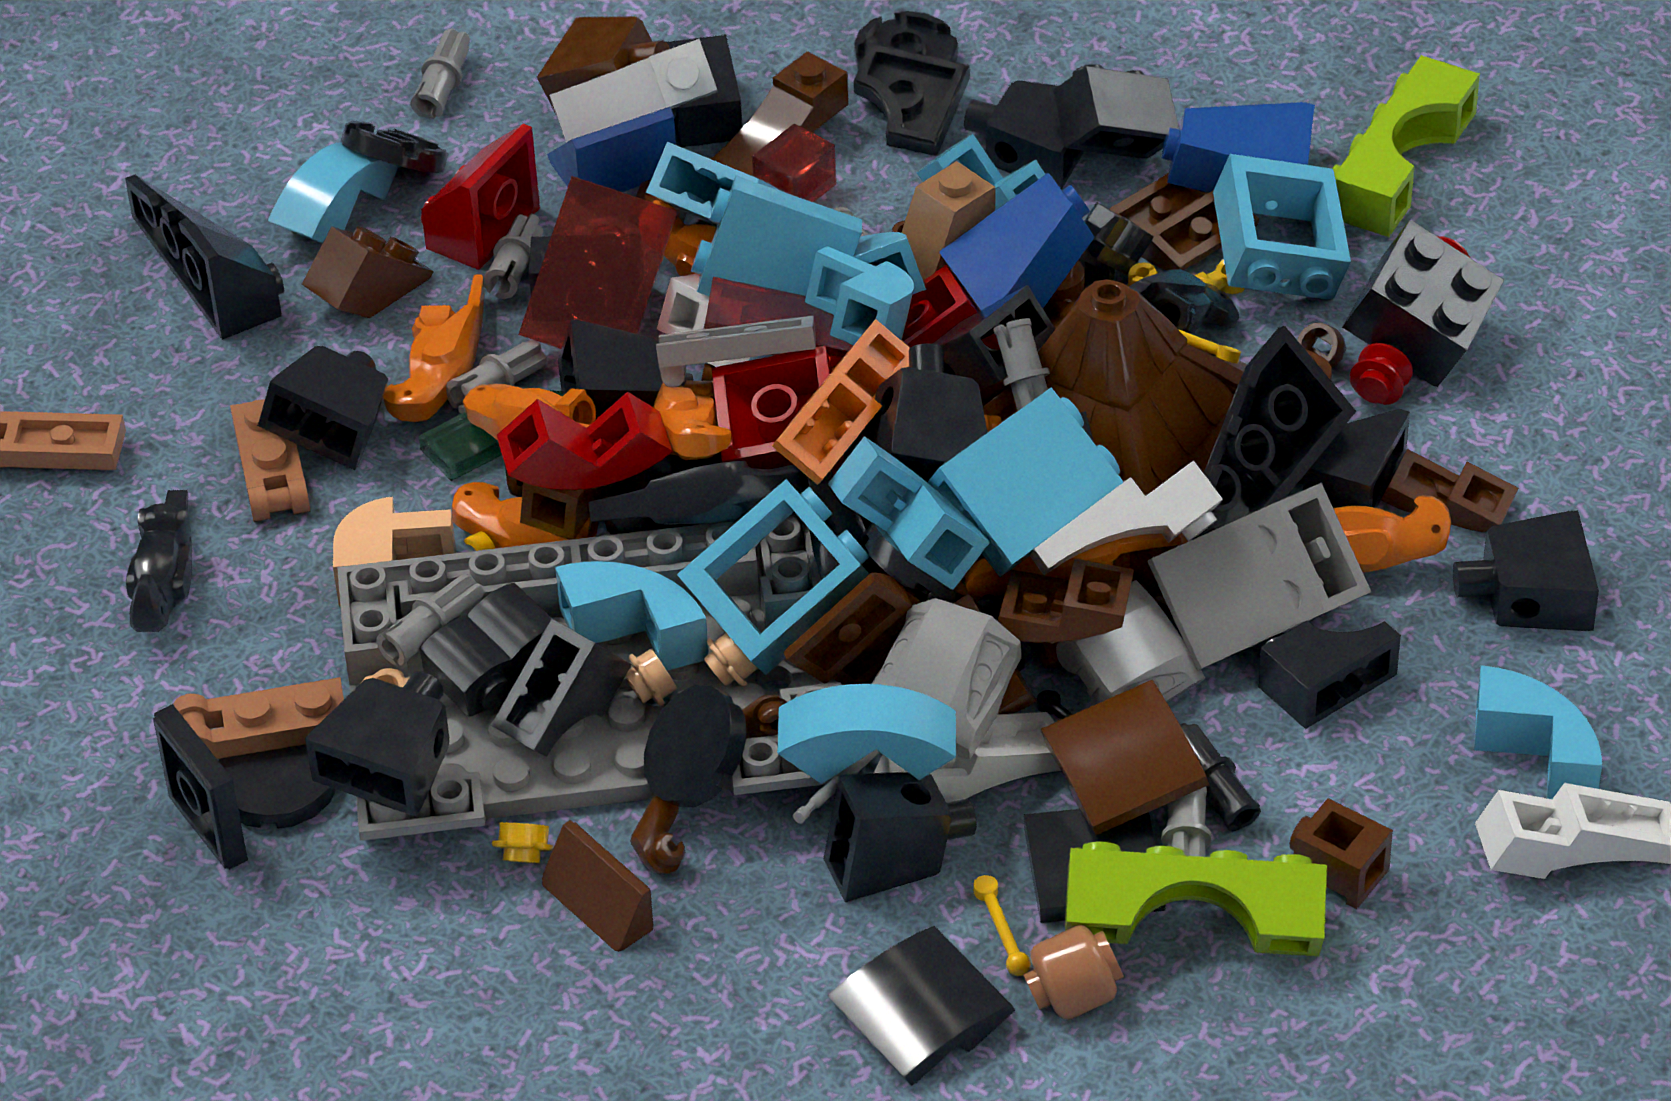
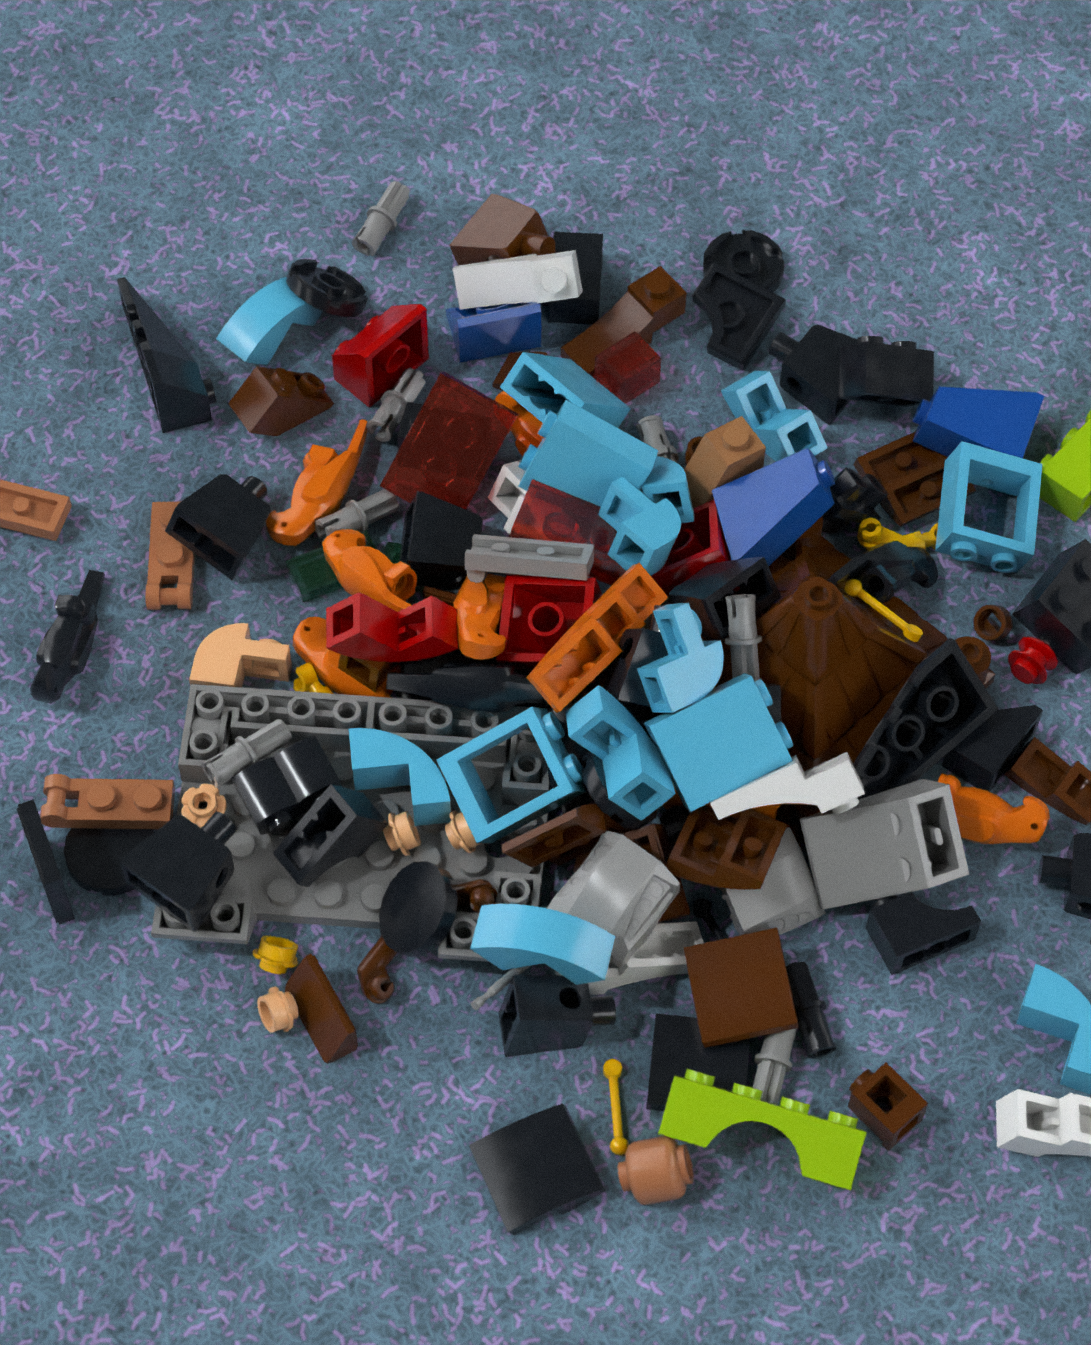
camera: 10 degrees right, 15 degrees up
(540, 900) = (277, 1010): none -> light nougat plate
(968, 396) = (688, 669): none -> medium azure brick

